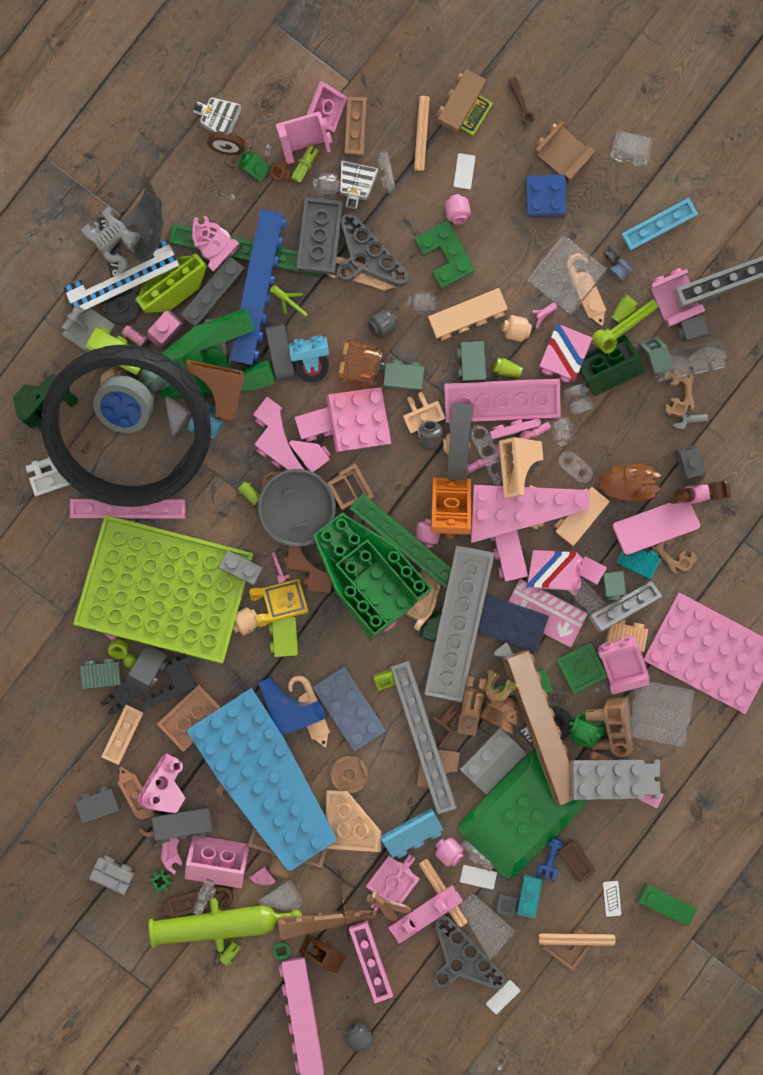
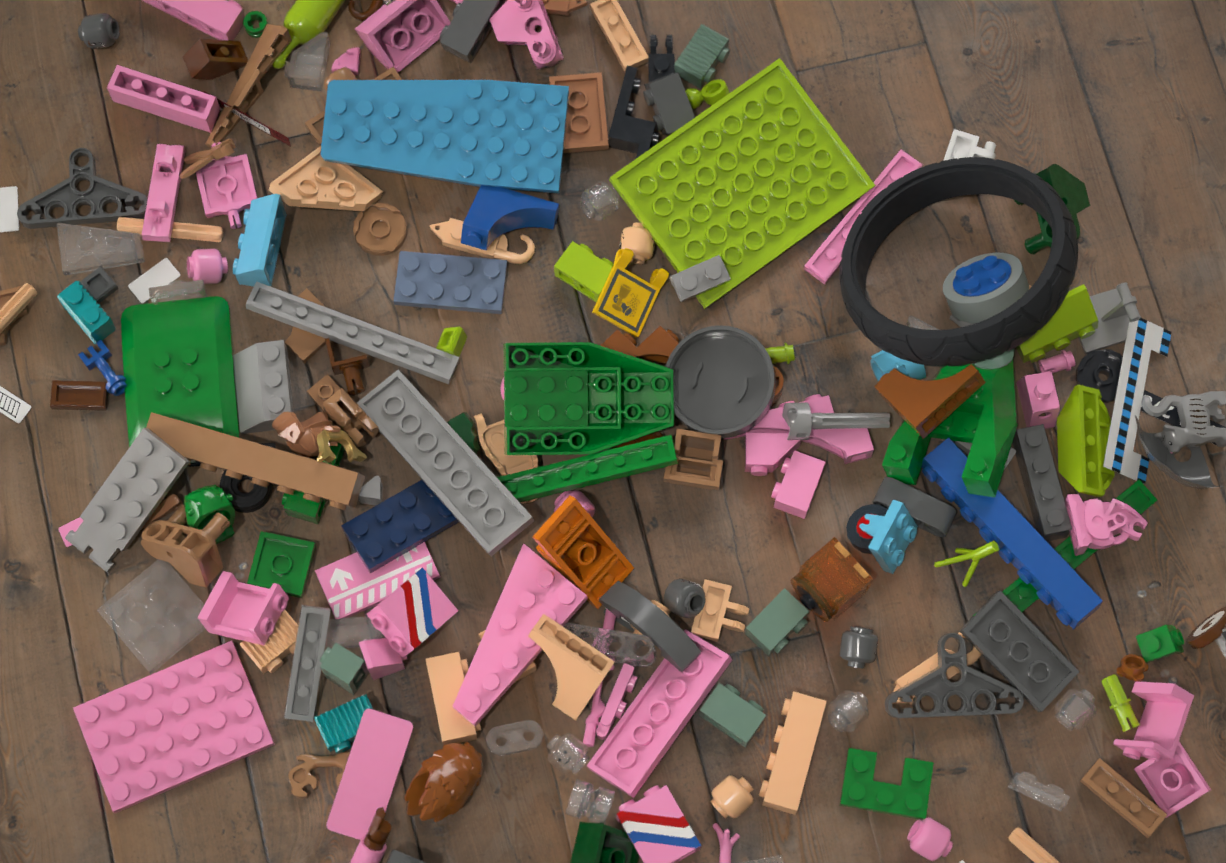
camera: 125 degrees right, 15 degrees down
(237, 662) = (600, 201): none -> clear head
(281, 578) = (654, 319): bright pink piece -> none
(283, 444) = (802, 421): none -> light grey piece
(356, 182) = (1052, 744): torso -> none
(358, 419) = (766, 532): bright pink plate -> none
(506, 368) = (693, 749): lime cone -> none
(510, 555) = (471, 581): bright pink brick -> none

